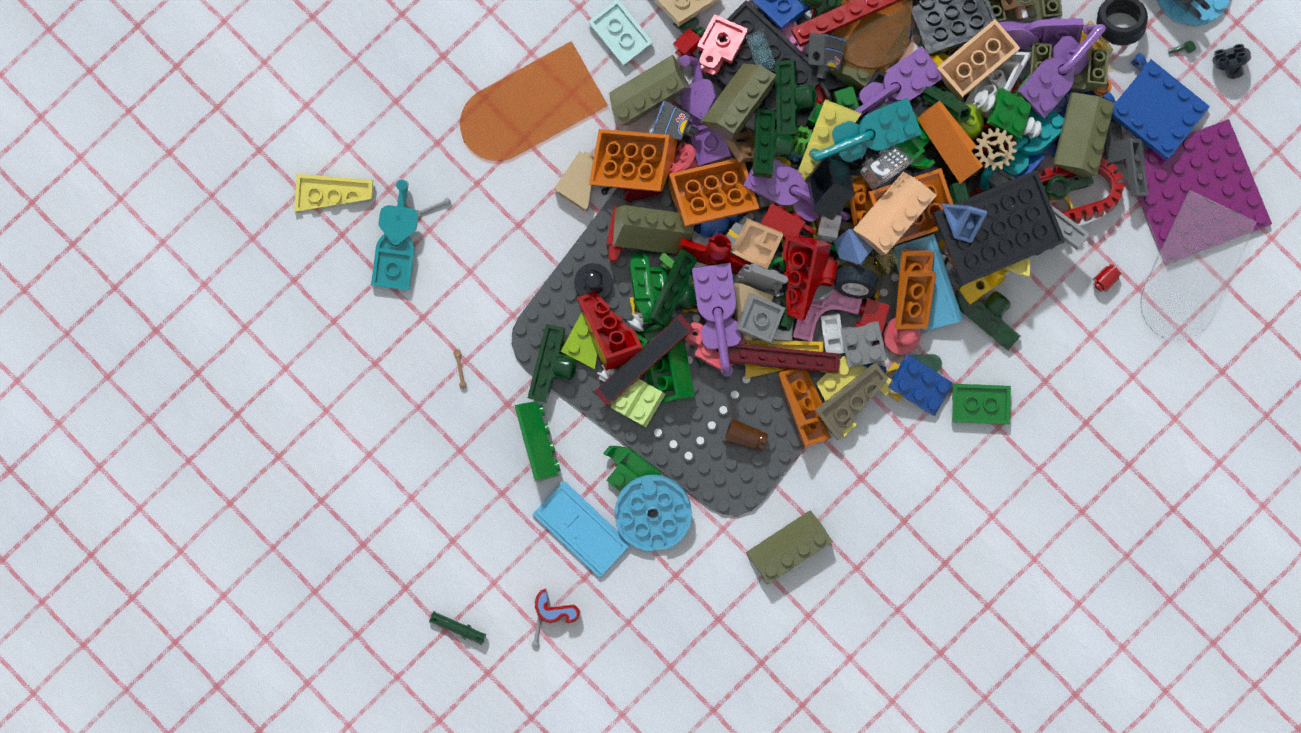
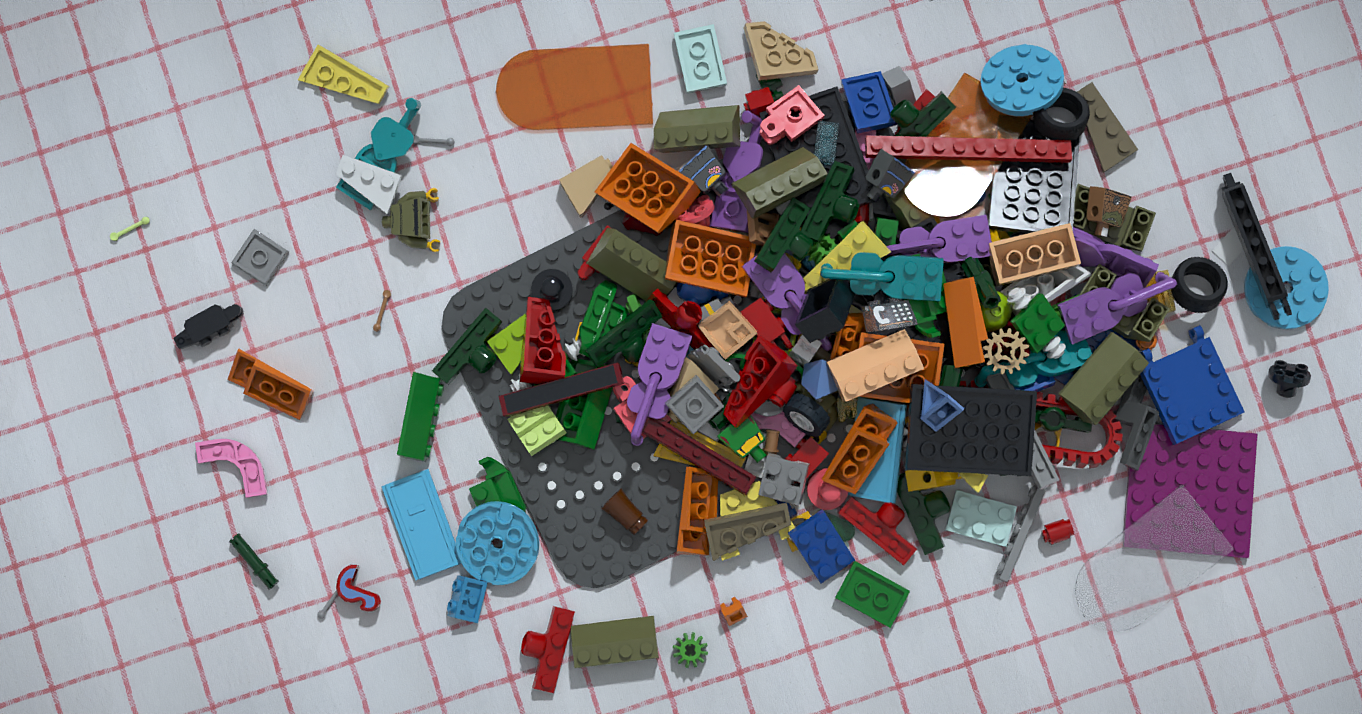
camera: 25 degrees right, 0 degrees up
(205, 416) = (115, 236): none -> yellowish green hinge
(320, 451) = (207, 325): none -> black hinge
(336, 374) = (260, 257): none -> light grey tile
(397, 475) = (269, 385): none -> orange slope
(398, 265) = (371, 181): none -> white wing
(402, 546) = (241, 456): none -> bright pink plate
(447, 281) = (412, 219): none -> olive torso
(649, 571) = (466, 599): none -> dark azure bracket
(738, 579) = (549, 648): none -> red plate
(814, 328) = (744, 439): none -> green torso
(837, 319) = (771, 442): none -> medium nougat pin
(860, 519) = (697, 649): none -> bright green gear
(875, 475) = (734, 612): none -> orange tile
(960, 345) = (880, 527): none -> red plate
(1038, 298) = (981, 518): none -> light aqua plate
(1077, 294) = (1020, 532): none -> light grey plate
(1189, 46) = (1253, 342): dark green hand -> none

